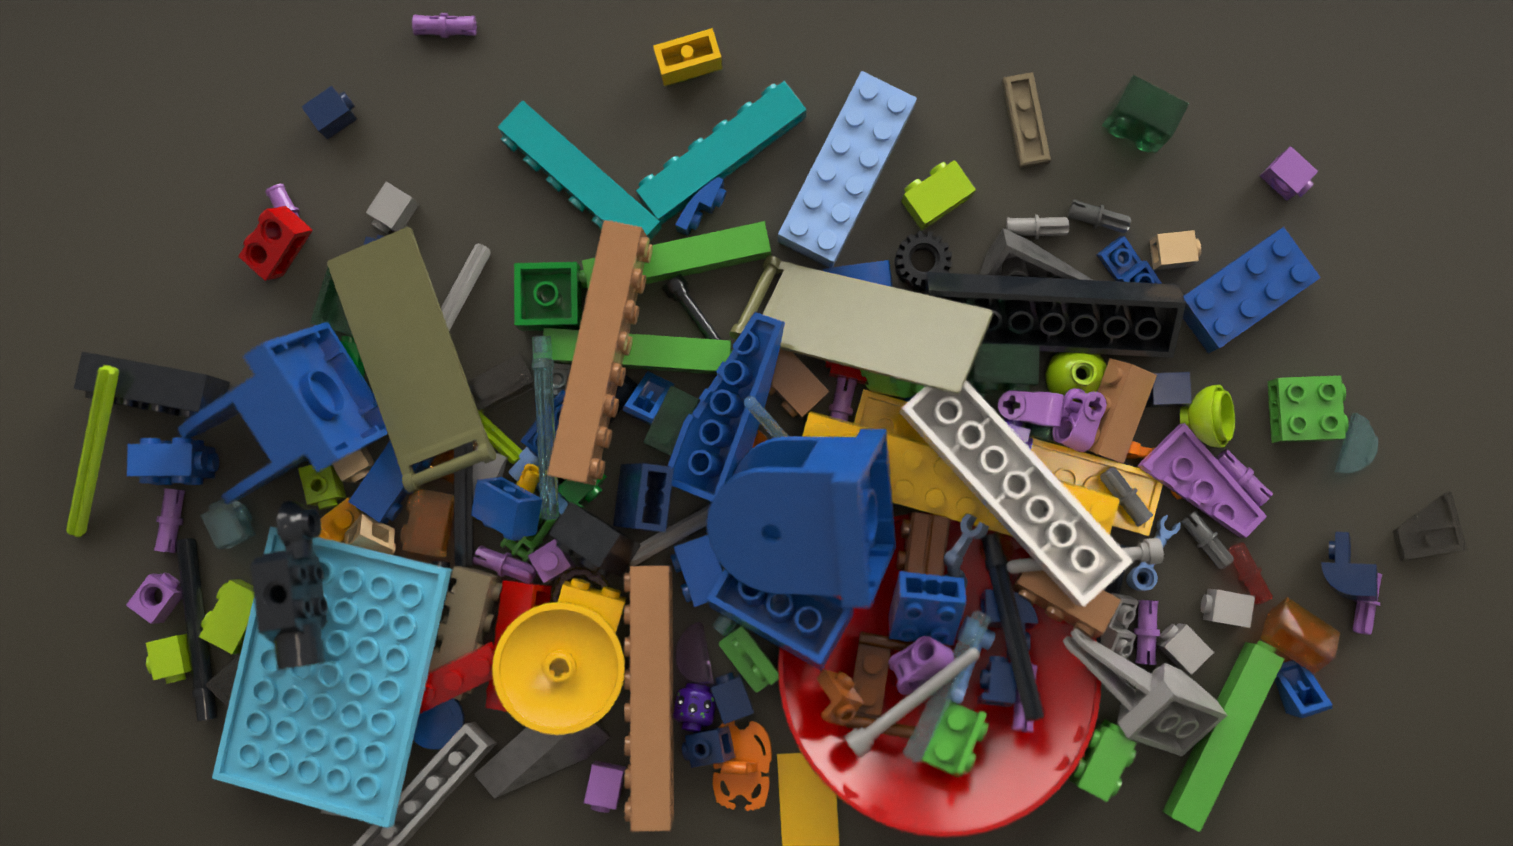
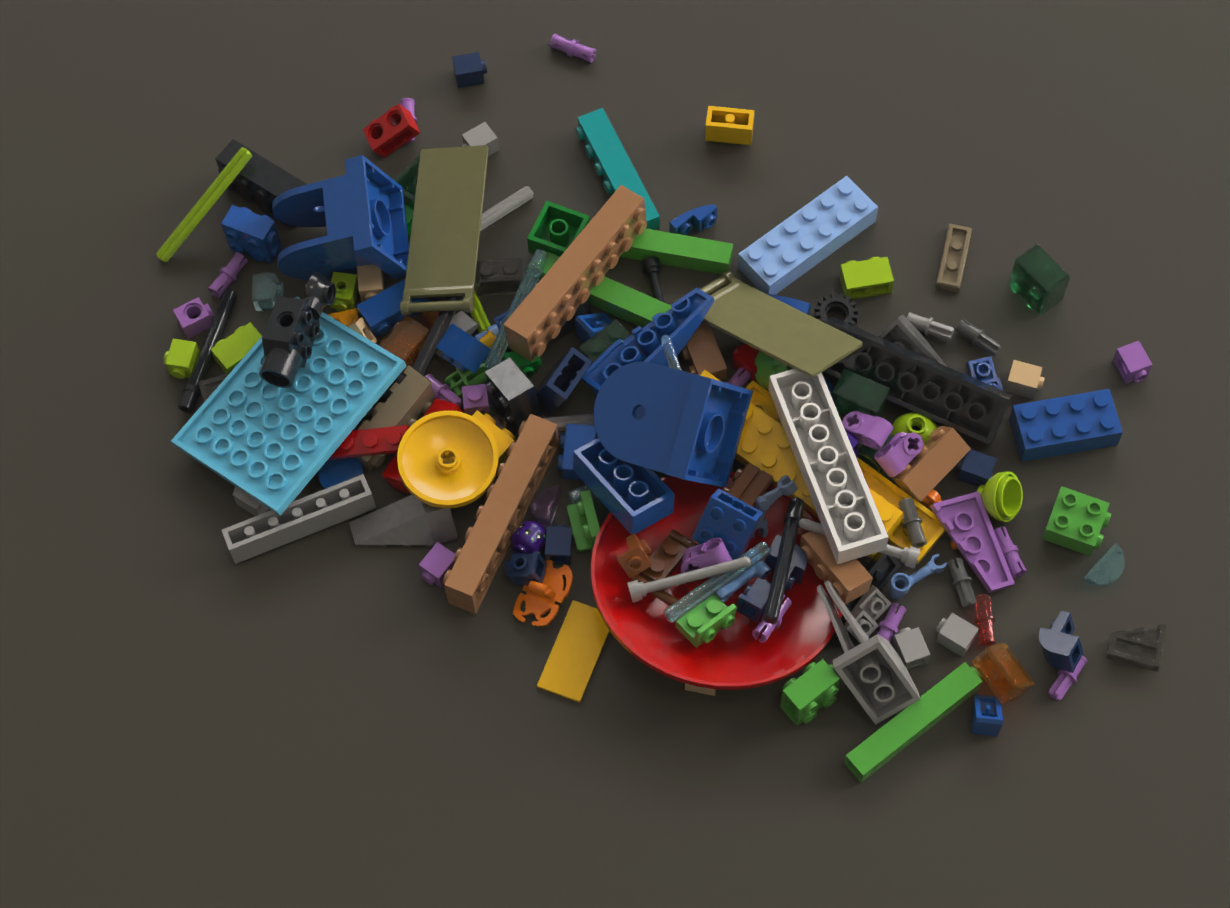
camera: 25 degrees right, 20 degrees down
(721, 152) = (728, 192): teal brick -> none

